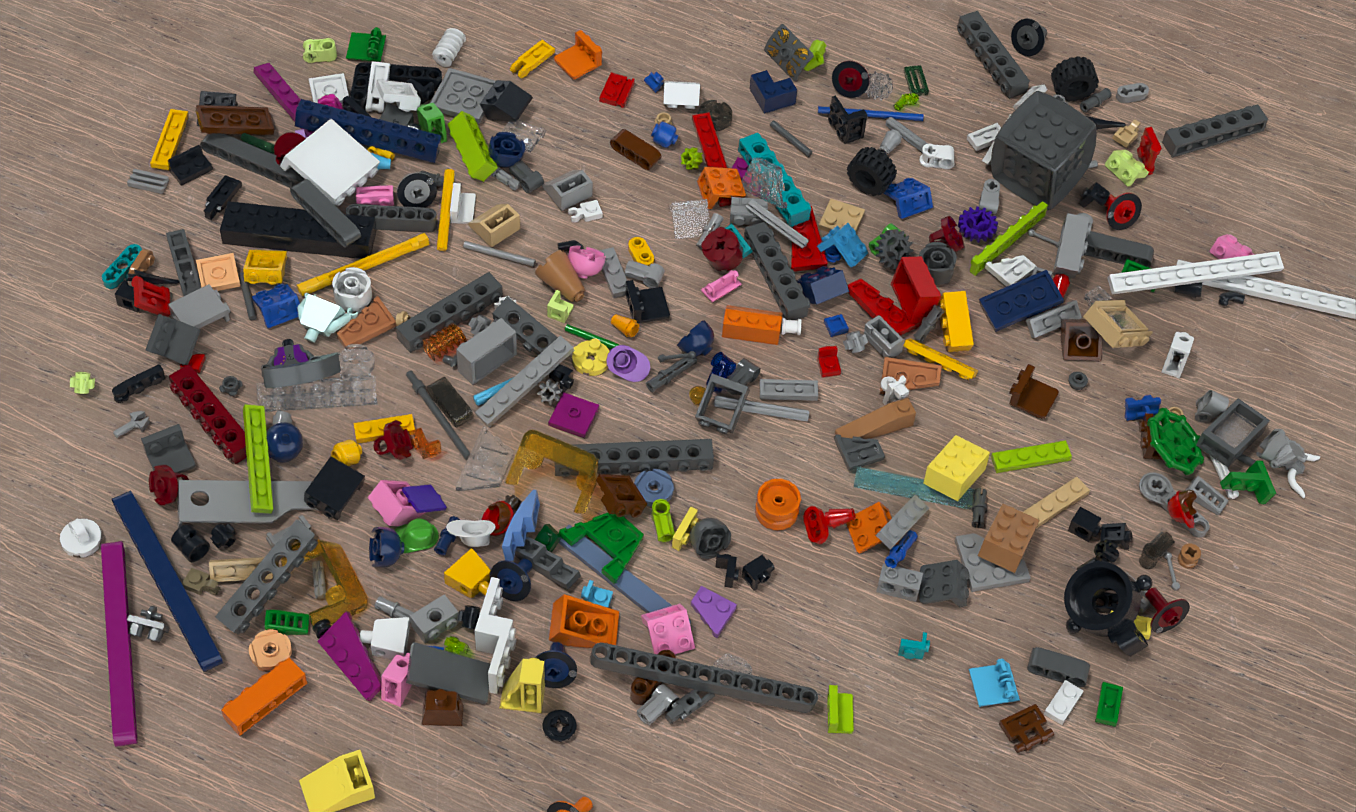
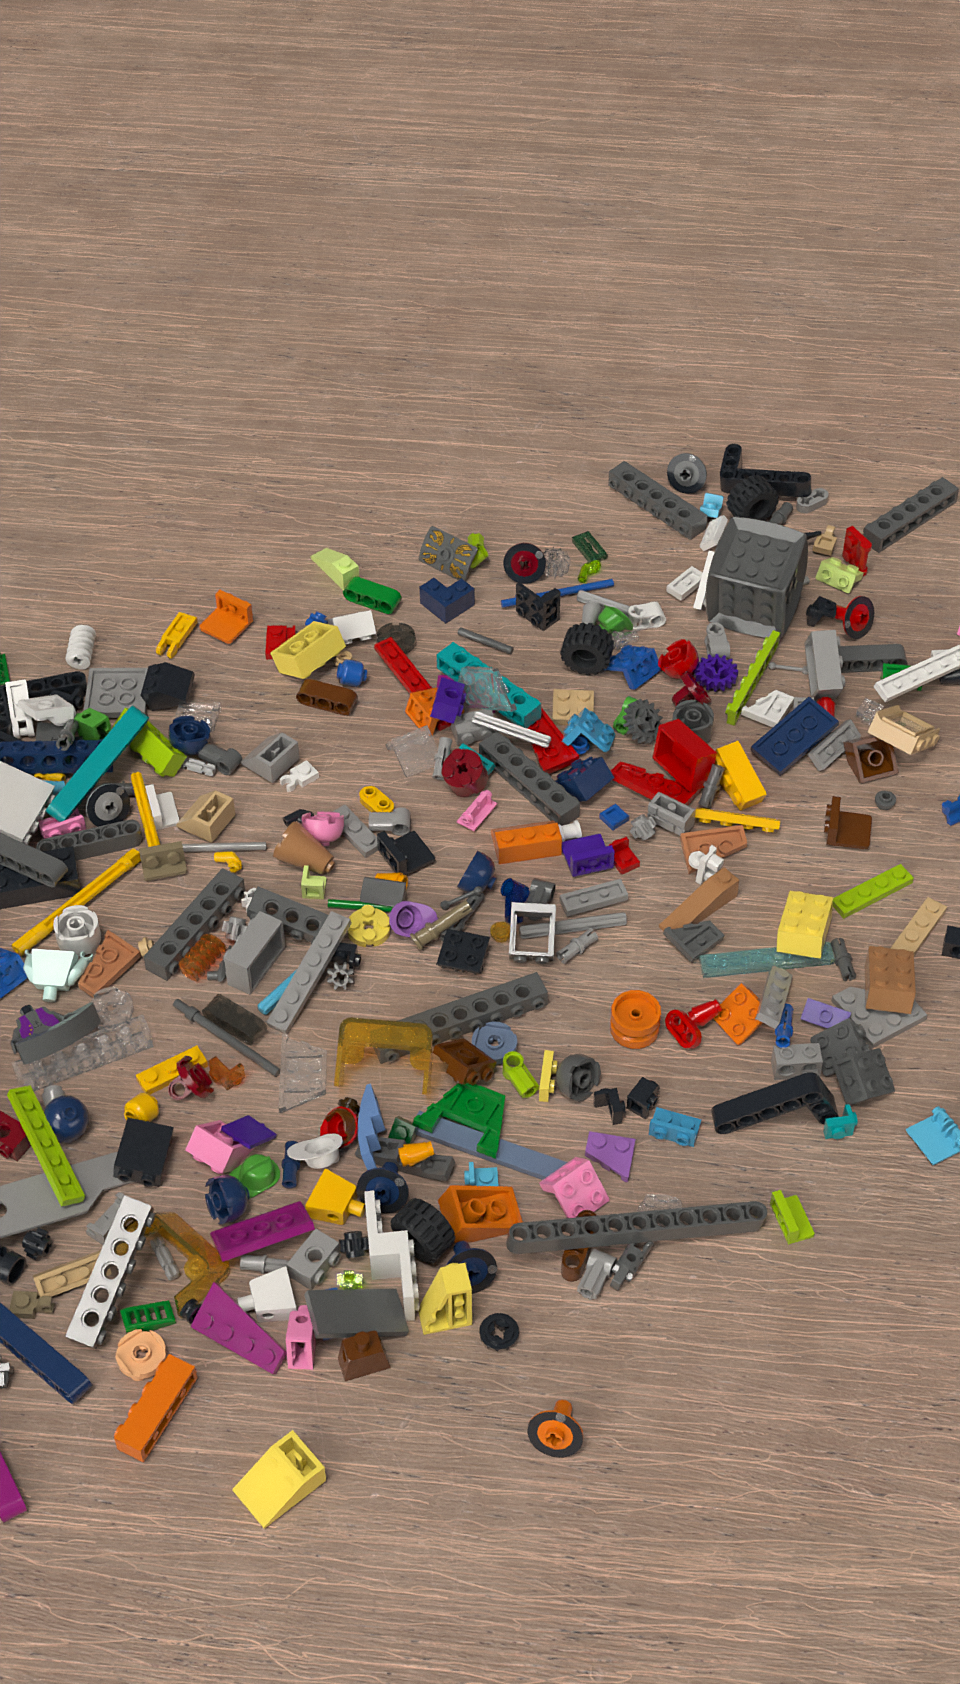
camera: 15 degrees left, 5 degrees down
(402, 582) = (261, 1231): none -> magenta tile
(403, 122) = (67, 735): none -> dark grey pin
(420, 153) = (97, 764): none -> teal beam
(444, 251) = (163, 861): none -> dark tan bracket
(501, 265) = (231, 858): none -> yellow arm
(530, 623) = (426, 1228): none -> black tyre
(547, 558) = (414, 1153): none -> light orange cone
(573, 415) = (375, 993): magenta plate -> none
(613, 331) = (382, 891): none -> dark grey slope
(634, 104) = (308, 650): none -> light yellow brick
(640, 376) = (432, 930): none -> dark tan pin
(658, 402) = (463, 951): none -> black hinge
(691, 38) = (336, 566): none -> yellowish green slope
(691, 158) = (386, 691): lime gear -> none
(710, 70) = (372, 595): none -> green beam
(732, 182) = (448, 700): none -> dark purple brick
(757, 427) = (577, 946): none -> light grey pin
(774, 605) = (674, 1127): none -> dark azure bracket
(798, 351) = (587, 855): none -> dark purple bracket
(865, 609) = (775, 1101): none -> black beam
(905, 153) = (614, 620): none -> bright green piece
(908, 170) = (624, 638): none -> clear cone
(940, 549) = (823, 1014): none -> plate
(950, 203) = (680, 658): none -> red cylinder
(951, 613) = (863, 1076): none -> dark grey bracket
(1039, 73) = (712, 505): none -> medium azure bracket
(1105, 67) = (783, 482): none -> black beam

